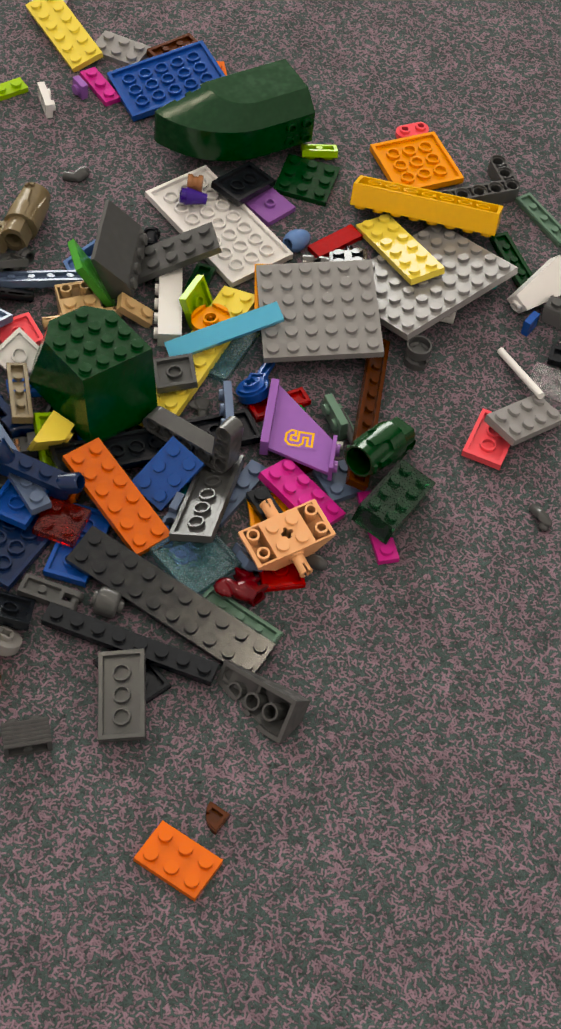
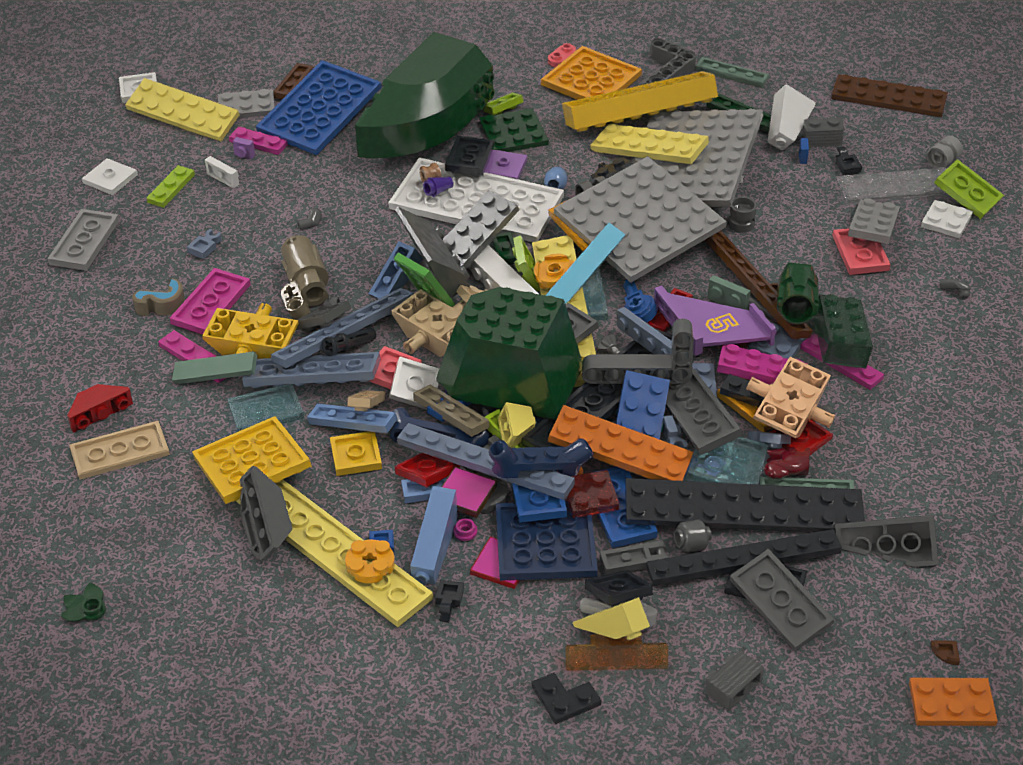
camera: 25 degrees left, 10 degrees down
(334, 241) = (586, 165): red tile -> none
(520, 373) = (834, 190): white bar -> none

